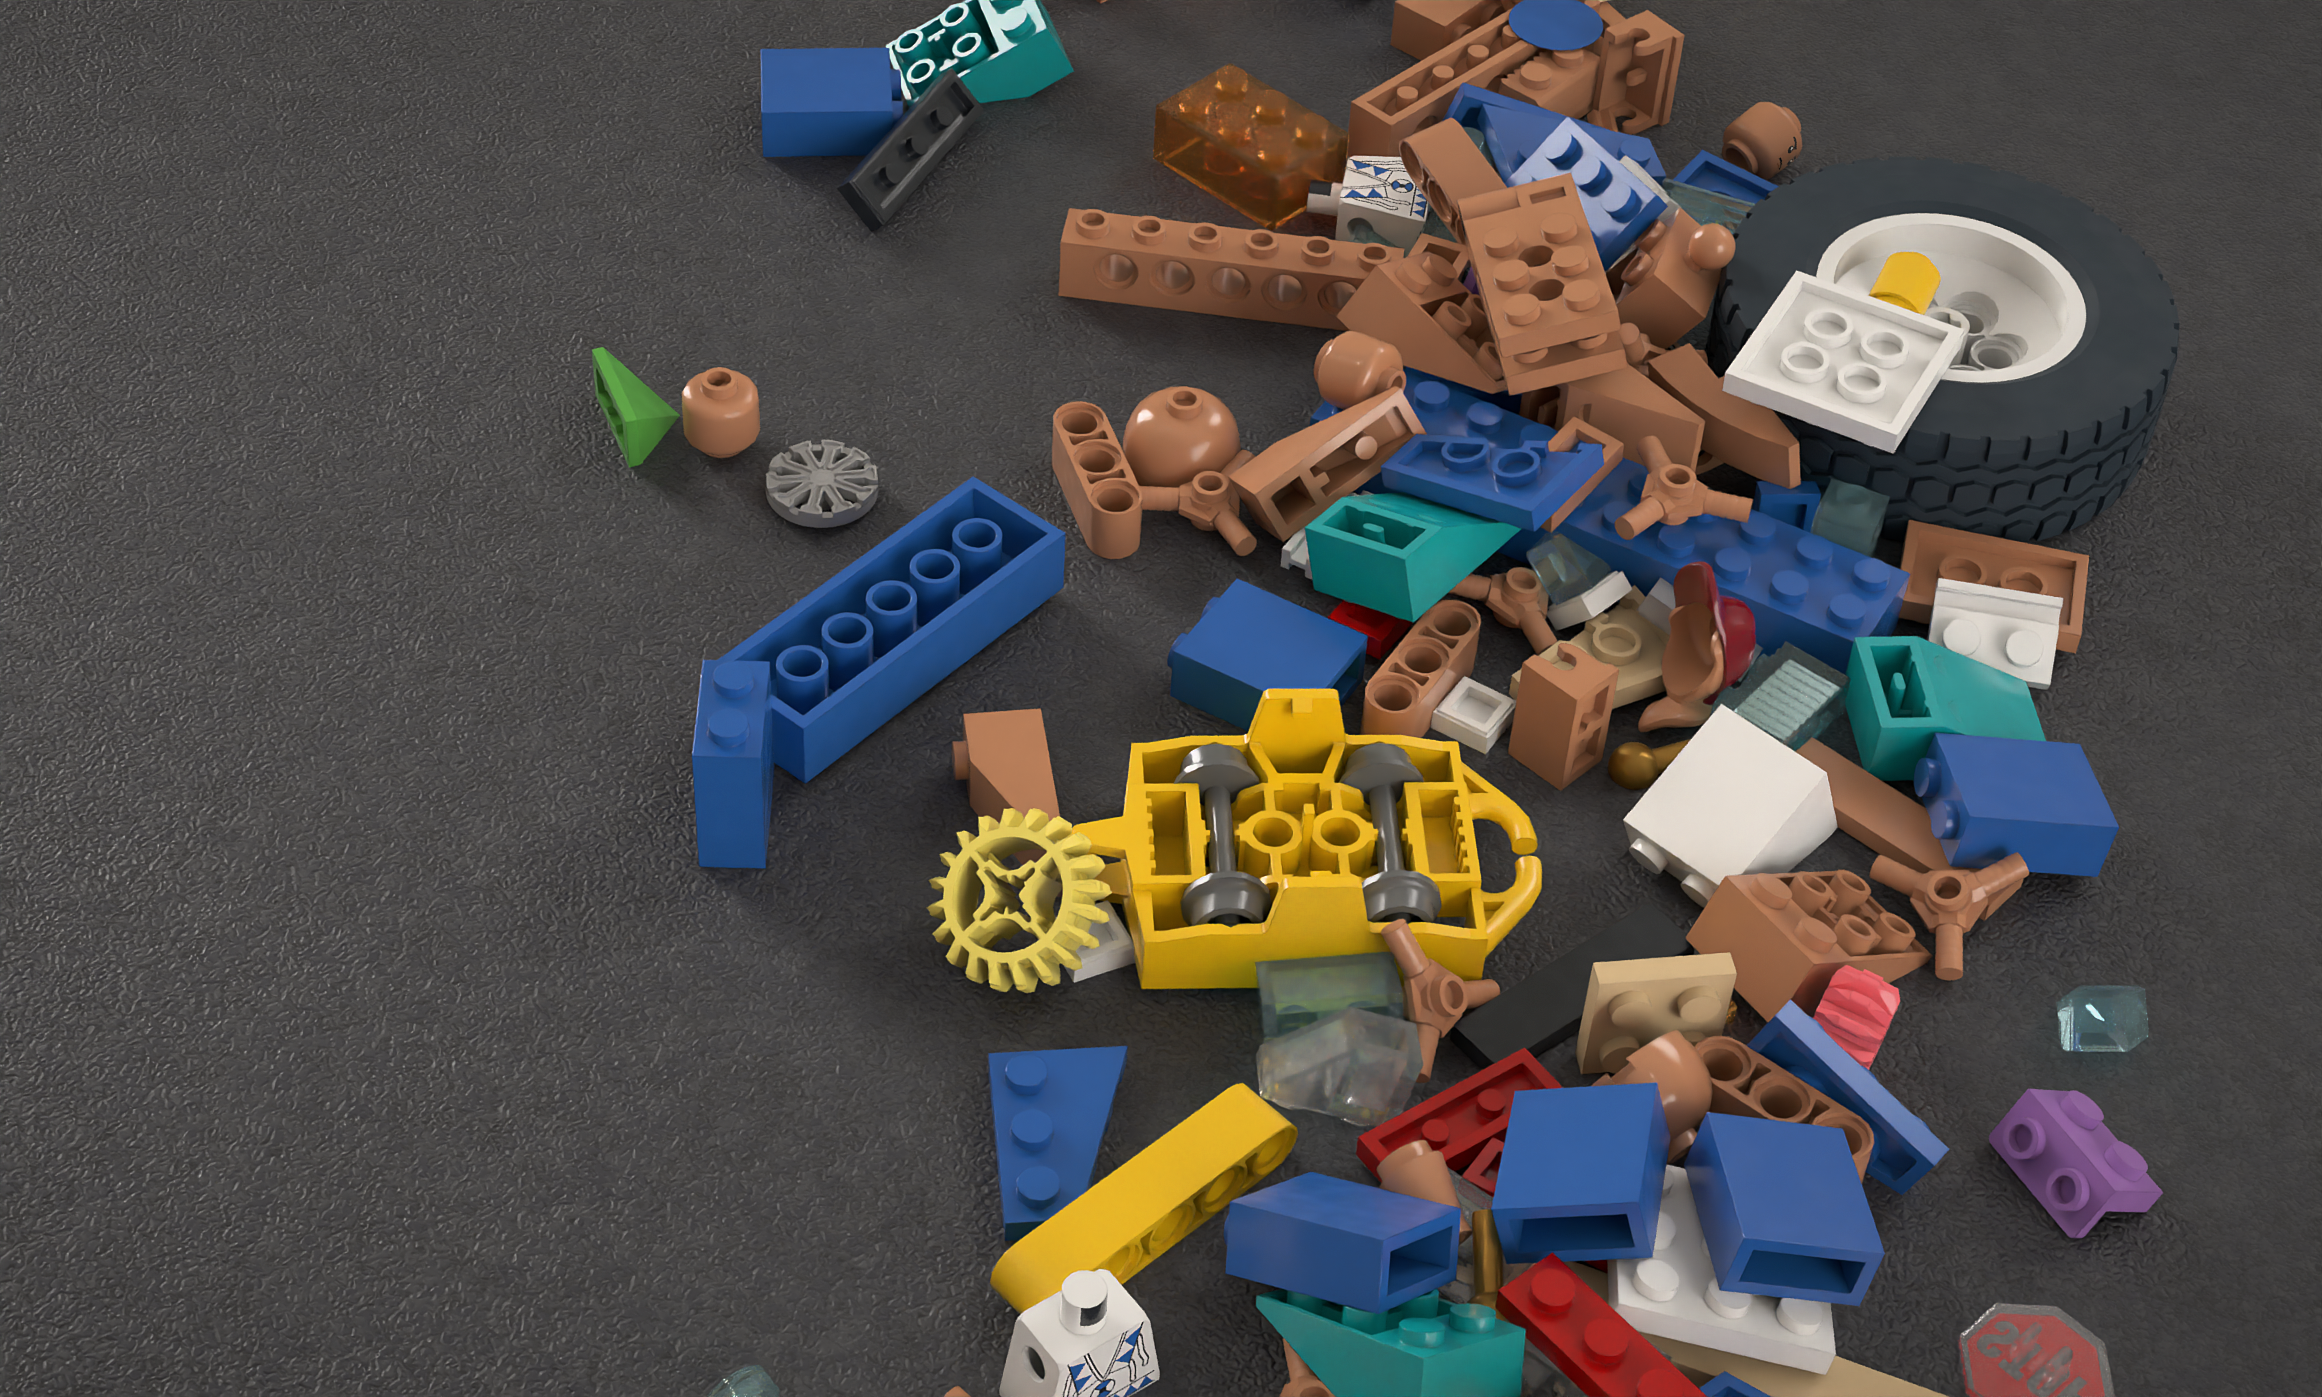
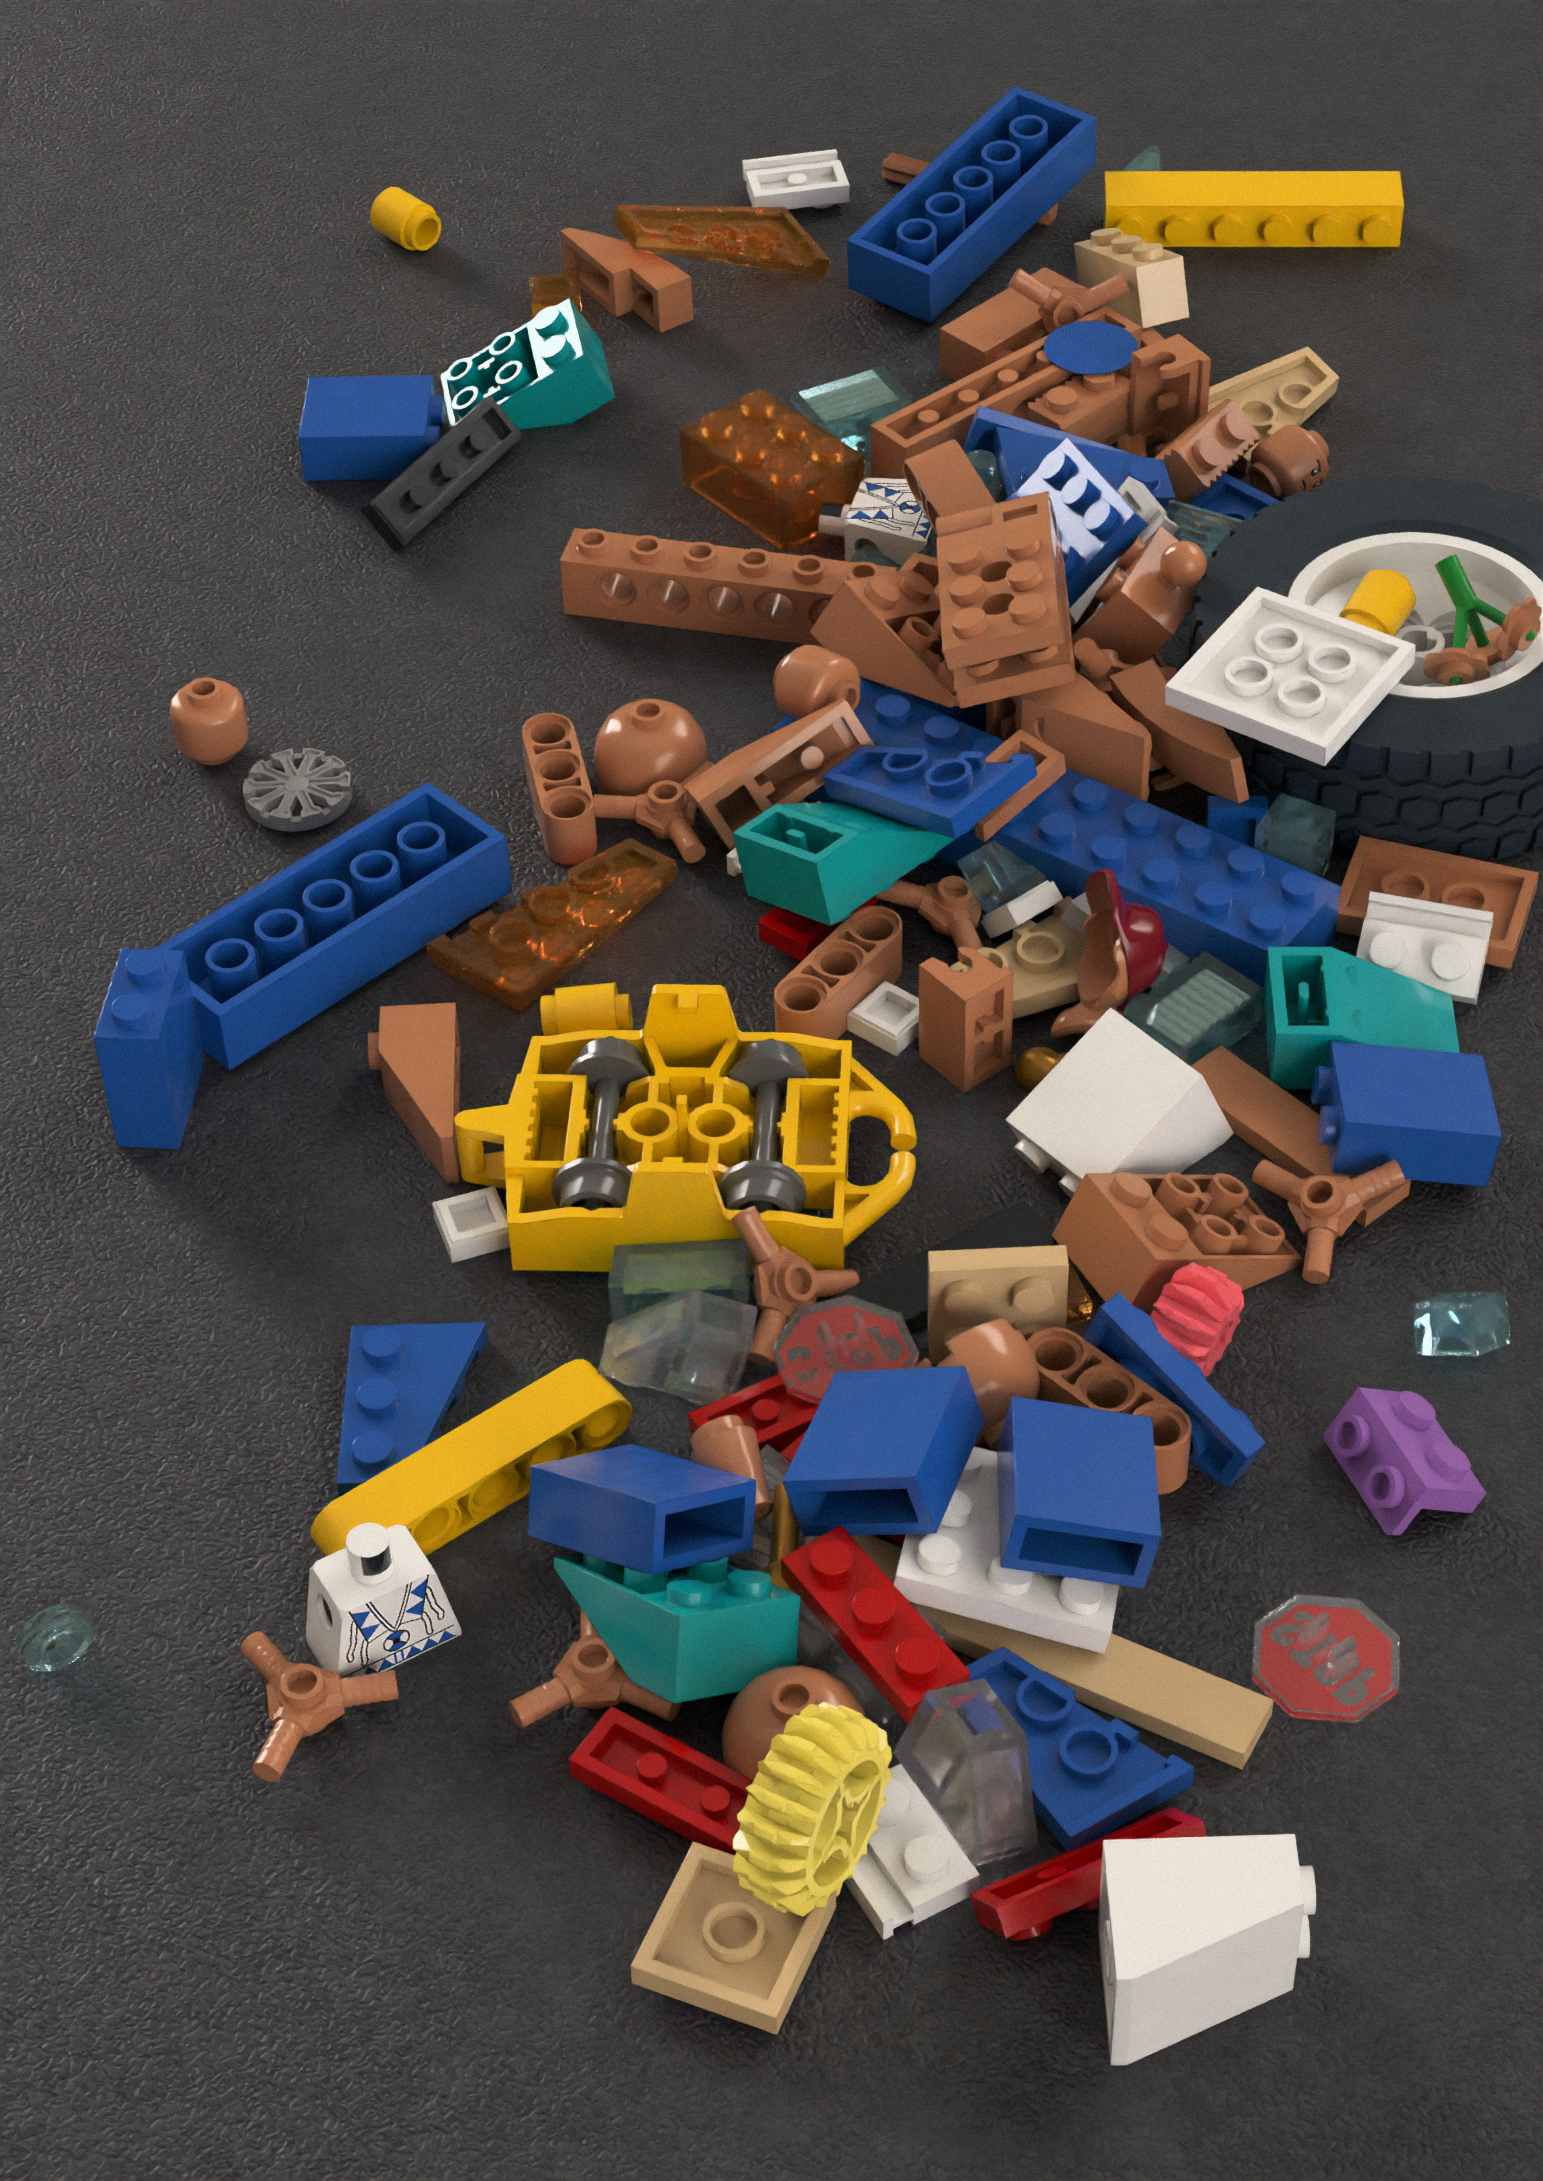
camera: 10 degrees right, 0 degrees up
(631, 407) = (132, 717): bright green slope -> none
(975, 931) = (422, 1179): light yellow gear -> none
(1115, 625) = (554, 926): none -> clear orange wing
(1169, 714) = (585, 1009): none -> yellow brick
(1258, 644) = (693, 943): blue brick -> none
(1324, 79) = (852, 404): none -> clear light blue brick
(1494, 1056) = (839, 1338): none -> clear piece
(1674, 495) = (1108, 807): nougat piece -> none
(1685, 125) = (1207, 450): none -> nougat brick
(1726, 81) = (1277, 394): none -> tan wing
(2008, 332) = (1471, 659): none -> nougat plant

